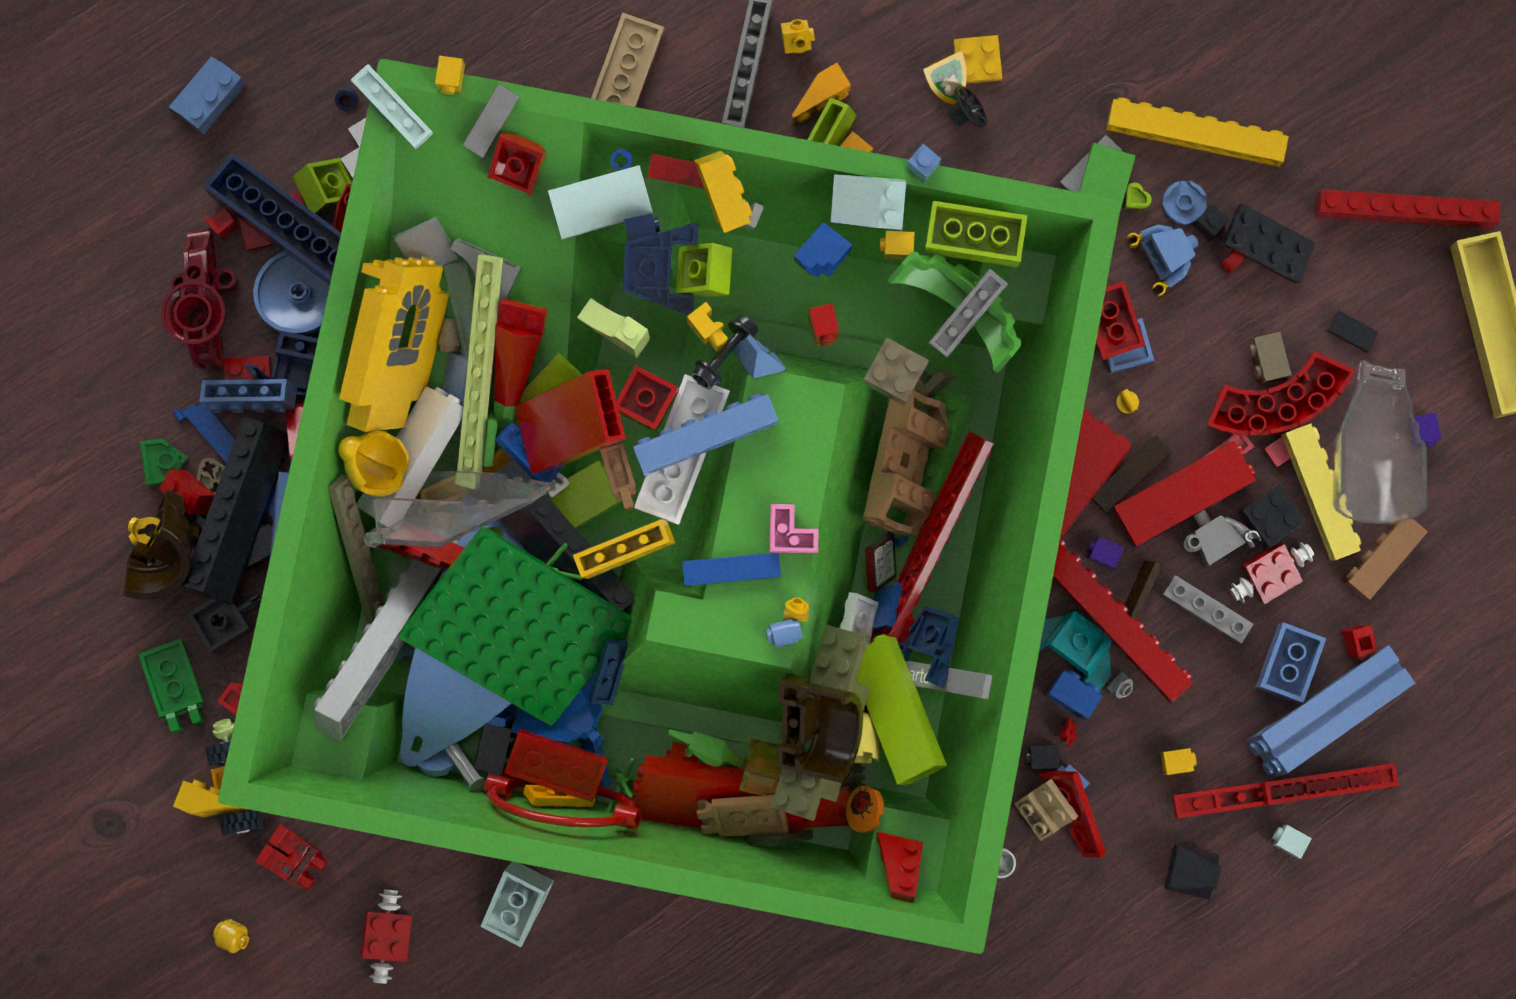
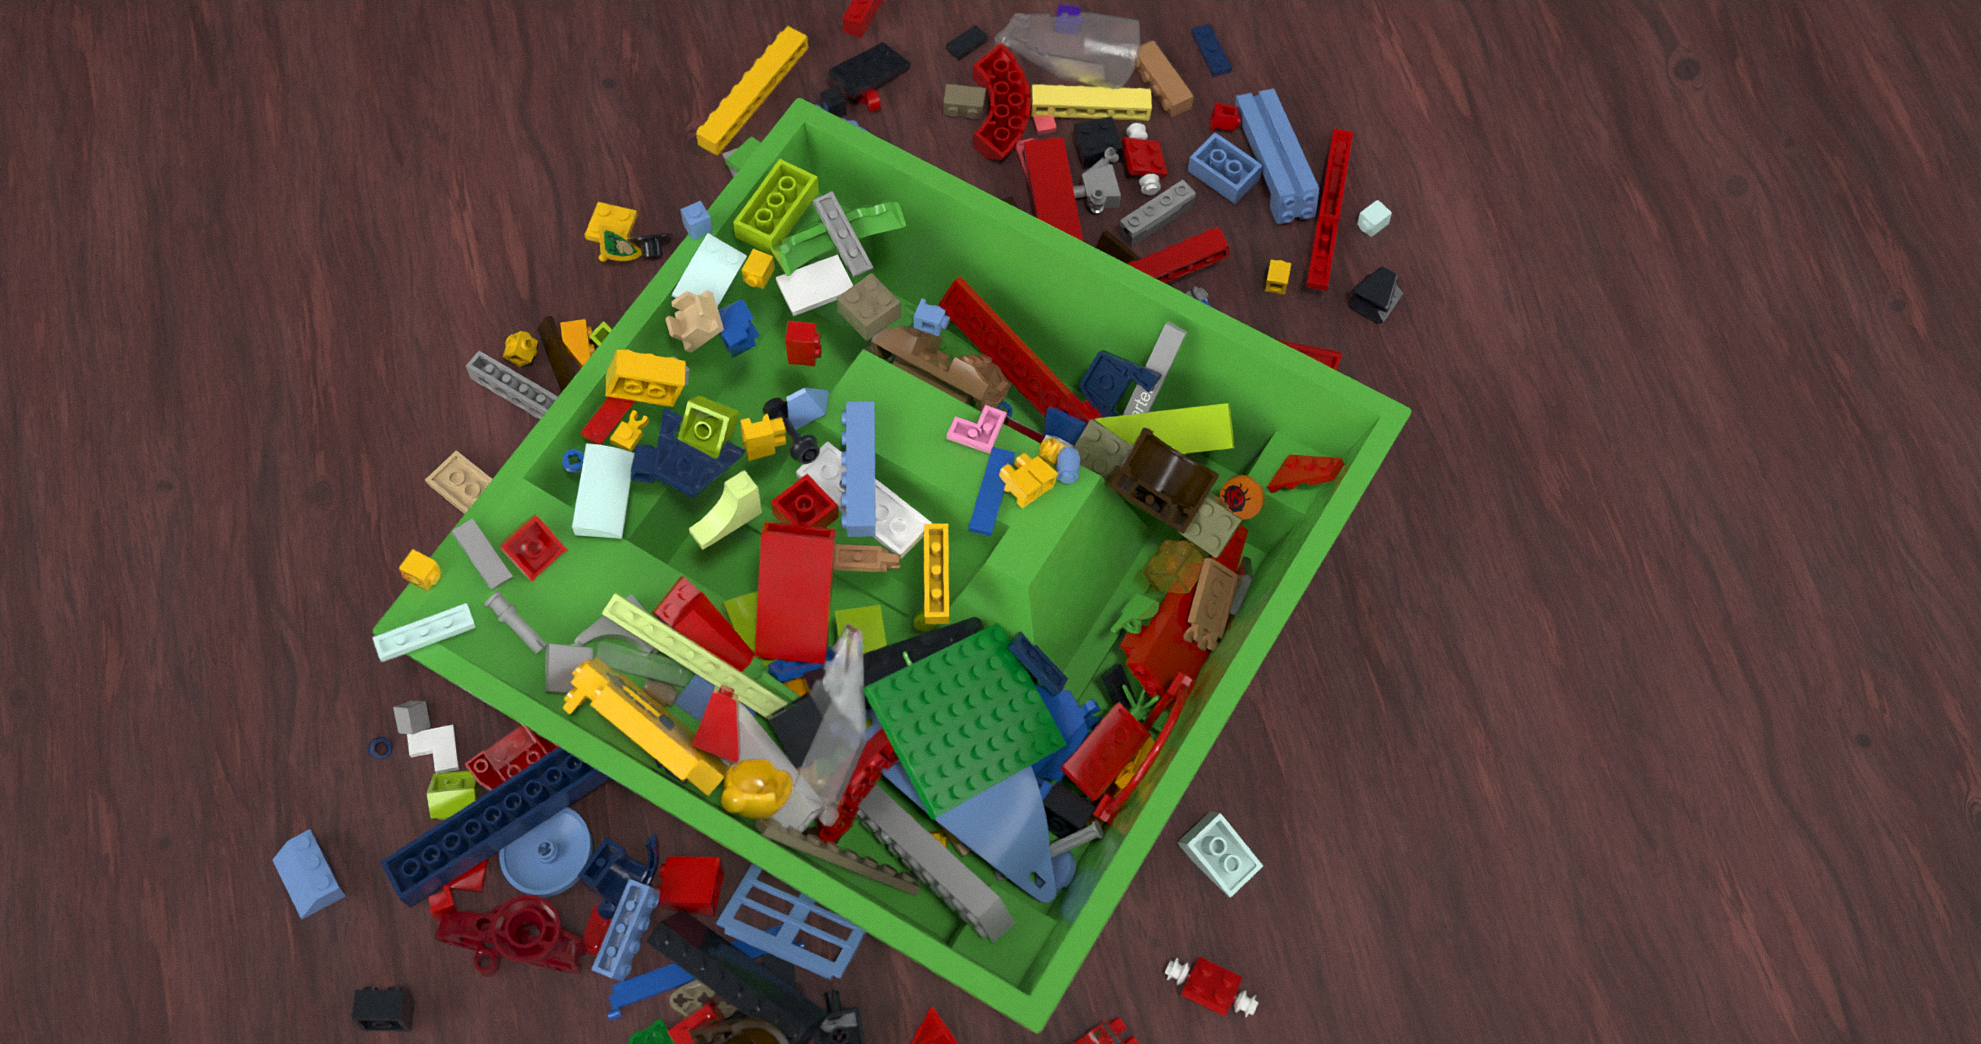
camera: 70 degrees left, 20 degrees down
(106, 218) = (383, 1009): none -> black brick
(416, 408) = (720, 725): none -> red slope
(445, 170) = (507, 613): none -> light grey pin
(455, 476) = (797, 727): none -> black brick
(636, 749) = (1113, 681): none -> black tile
(669, 198) = (629, 434): none -> yellow plate
(750, 602) = (1030, 480): none -> yellow hips
(804, 75) = (556, 352): none -> dark brown tile
(812, 210) = (695, 320): none -> tan panel
(905, 310) = (814, 285): none -> white tile
(906, 437) = (930, 318): none -> medium blue brick
(1449, 597) = (1211, 50): none -> dark blue plate

